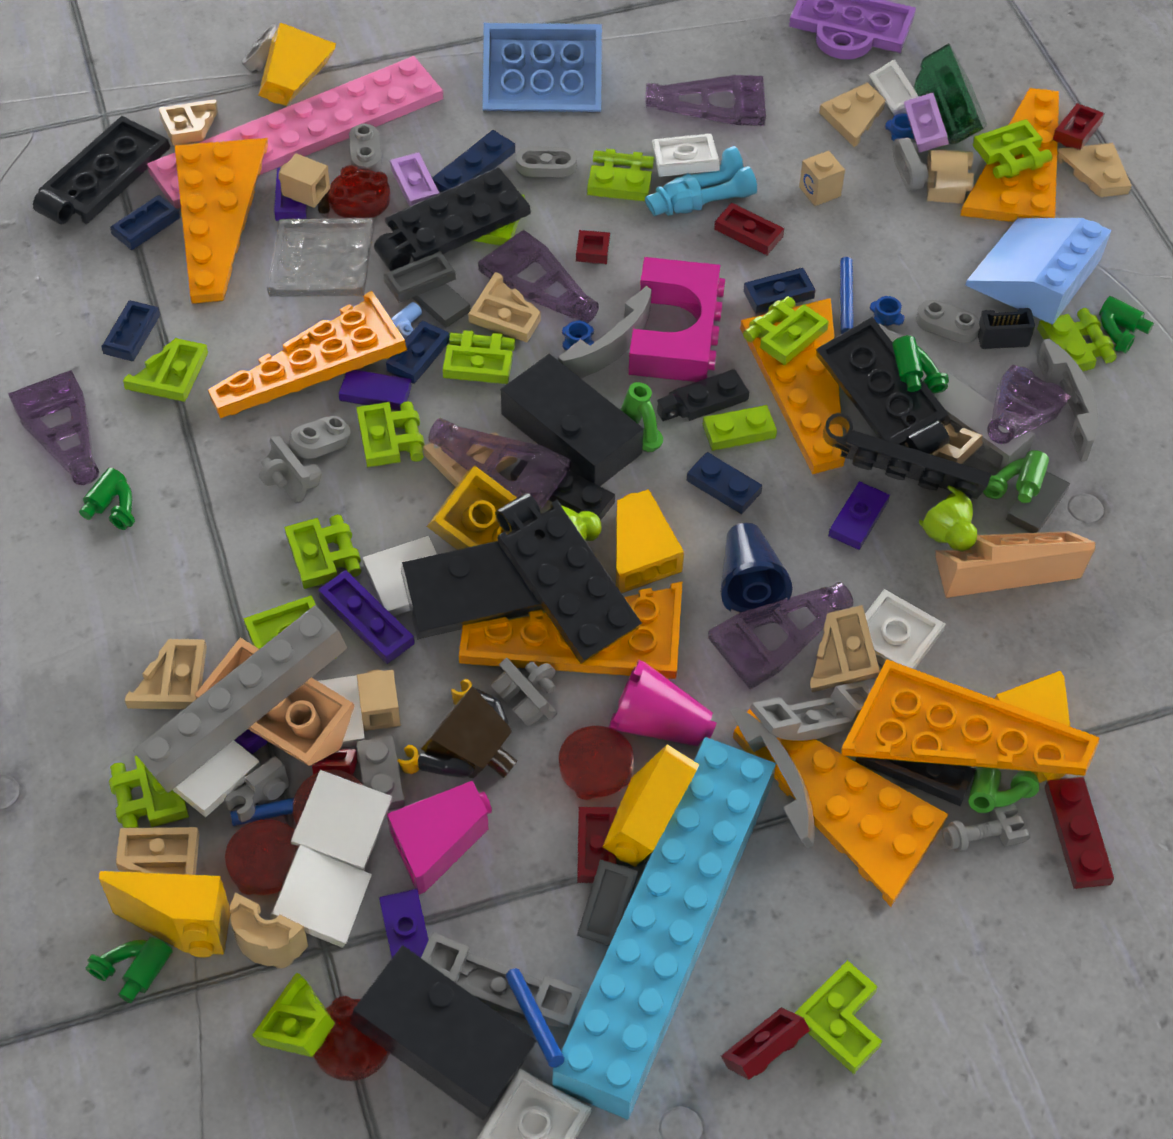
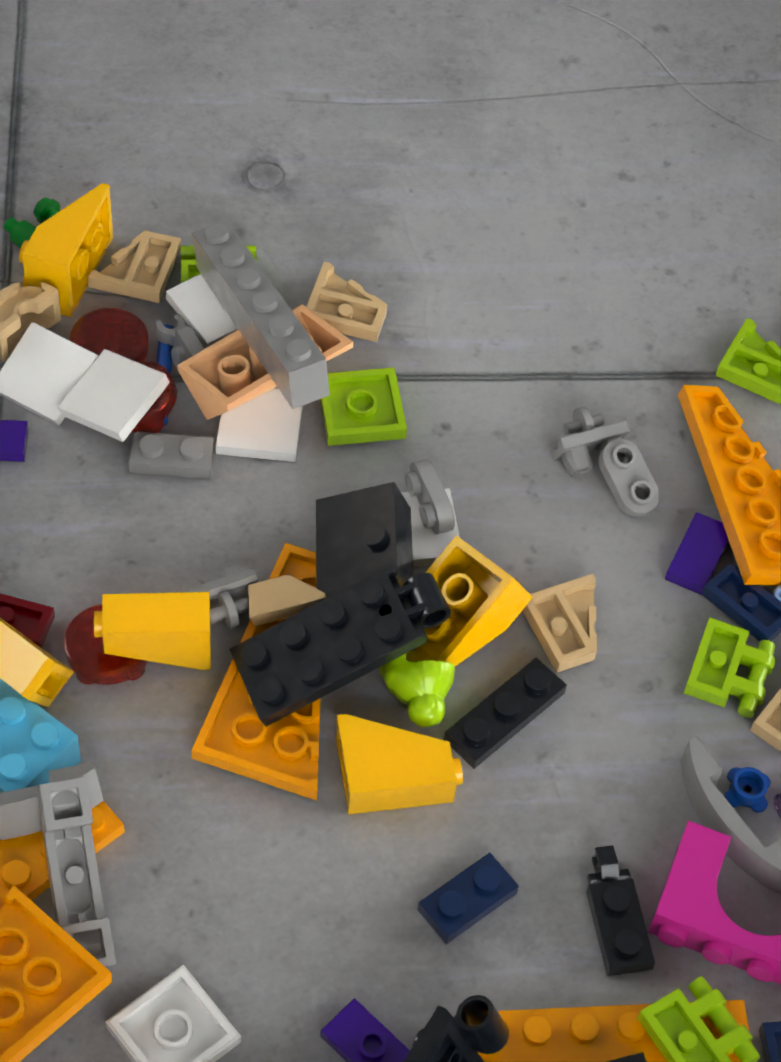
camera: 100 degrees right, 0 degrees up
(49, 397) = (738, 251): clear purple plate -> none
(103, 493) = (599, 290): green plant -> none
(312, 555) = (471, 445): lime plate -> none
(341, 760) = (187, 415): dark red plate -> none
(366, 616) = (366, 471): dark purple plate -> none
(378, 699) = (256, 463): tan brick -> none
(379, 435) = (625, 538): lime plate -> none
(385, 557) = (435, 505): none -> light grey plate
(438, 831) = (74, 479): dark pink slope -> none
(465, 738) = (178, 527): dark brown torso -> none
(526, 632) = (280, 599): none -> tan tile
(539, 477) = (508, 671): clear purple plate -> none
(572, 420) = (596, 736): black brick -> none
(587, 703) = (157, 627): none -> yellow slope
(638, 406) = (595, 807): bright green plant -> none
(660, 709) = (142, 712): dark pink cone -> none
(739, 427) = (556, 945): lime plate -> none
(749, 655) = (204, 837): clear purple plate -> none
(752, 571) = (311, 871): dark blue cone -> none
(845, 651) = (156, 947): tan wing -> none

